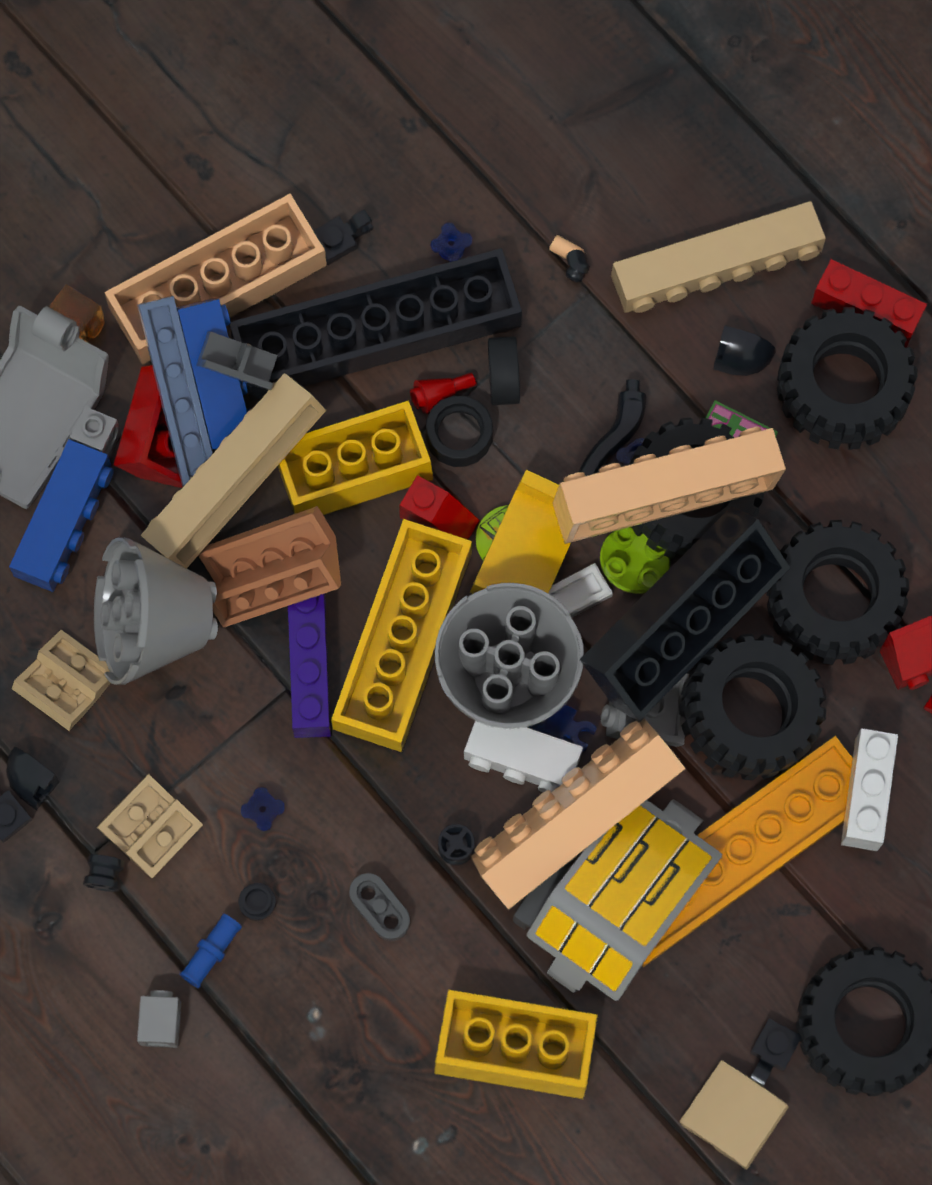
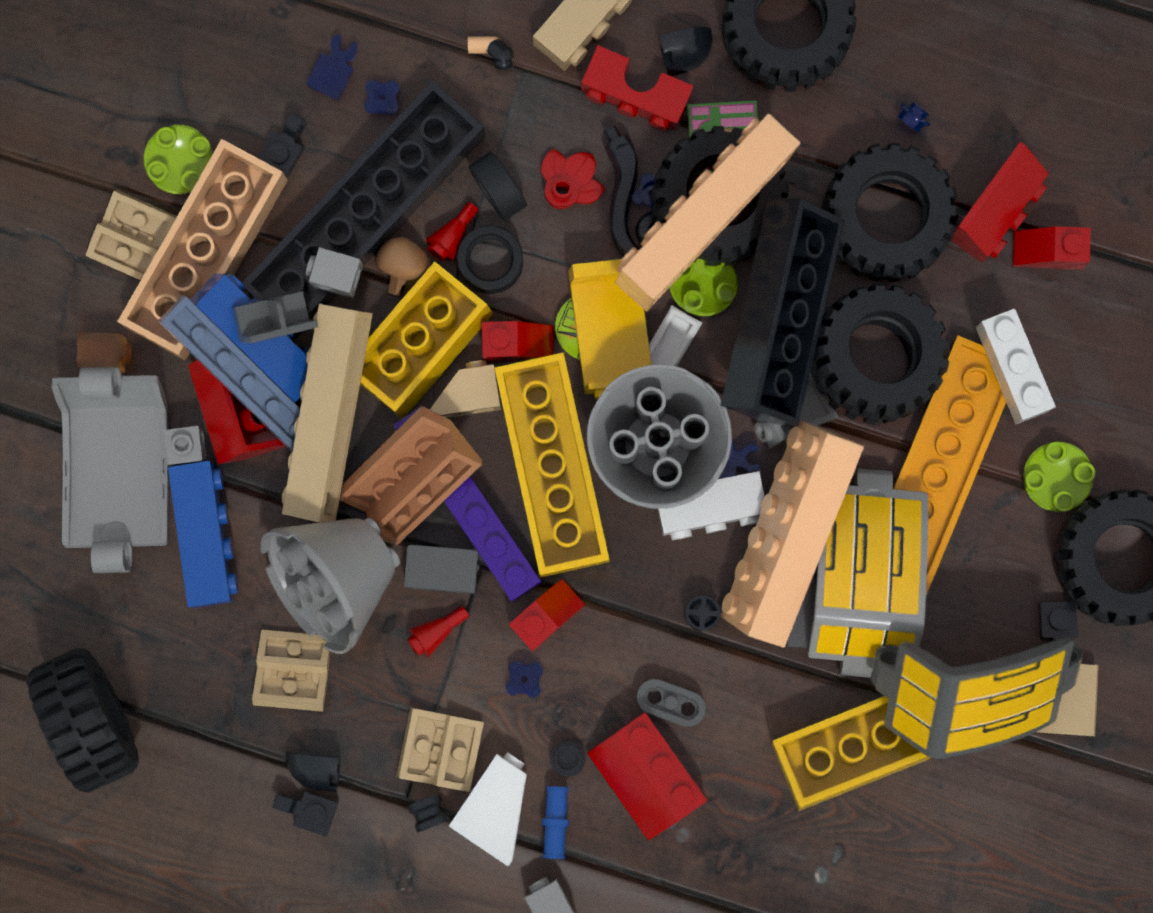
camera: 25 degrees left, 10 degrees up
(160, 230) = (129, 234): none -> tan slope
(165, 904) = (494, 808): none -> white slope
(204, 720) = (429, 636): none -> red cone
(242, 190) = (176, 158): none -> lime dish
(248, 668) = (441, 569): none -> dark grey panel
(315, 356) = (334, 272): none -> light grey brick
(316, 763) = (547, 615): none -> red slope
(317, 958) = (647, 776): none -> red slope
(369, 531) = (470, 392): none -> tan slope
(381, 385) = (402, 261): none -> medium nougat piece
(422, 199) = (331, 72): none -> clear blue plate
(576, 403) = (572, 174): none -> red plate
(655, 1057) = (974, 705): none -> panel
(693, 386) = (661, 105): none -> red arch
(853, 915) = (1058, 476): none -> lime dish
(910, 525) = (914, 116): none -> clear blue plate

